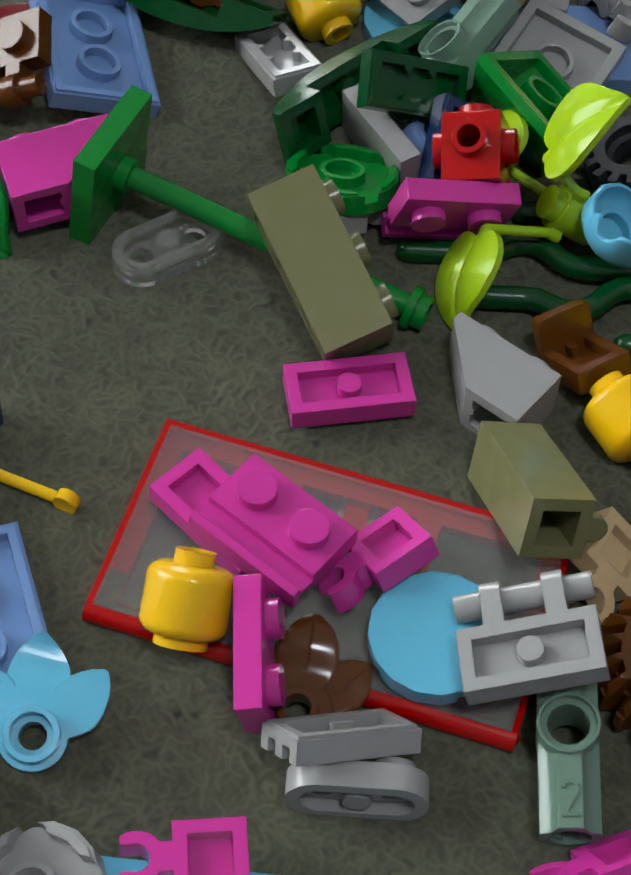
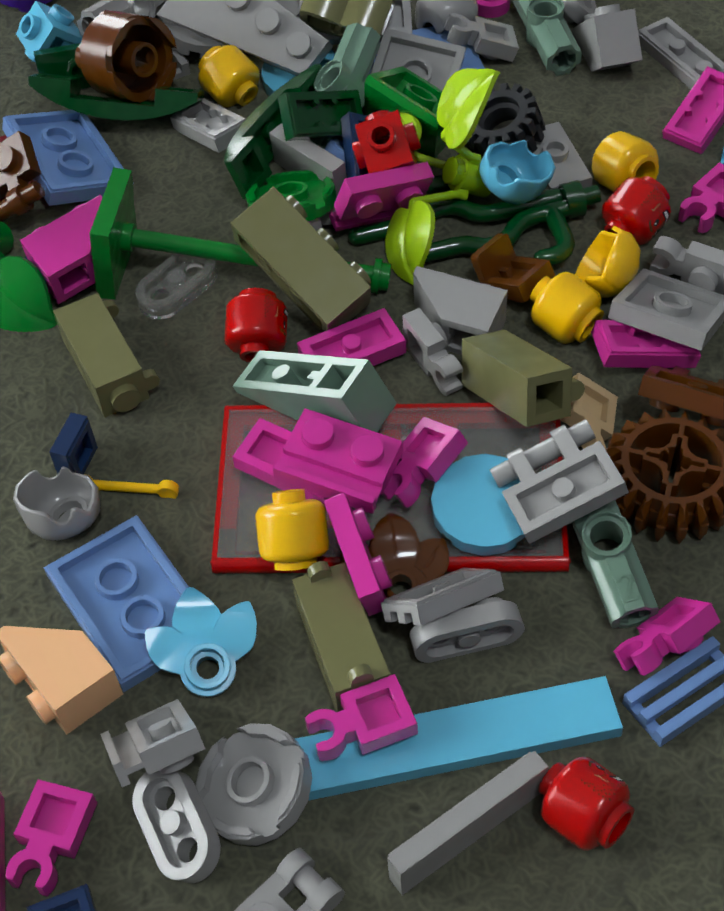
camera: 10 degrees left, 0 degrees up
(47, 311) = (104, 354): none -> olive brick
(201, 739) = (338, 629): none -> olive brick
(242, 327) = (255, 323): none -> red head
(283, 429) = (325, 384): none -> sand green slope
(441, 415) = (427, 346): none -> light grey plate

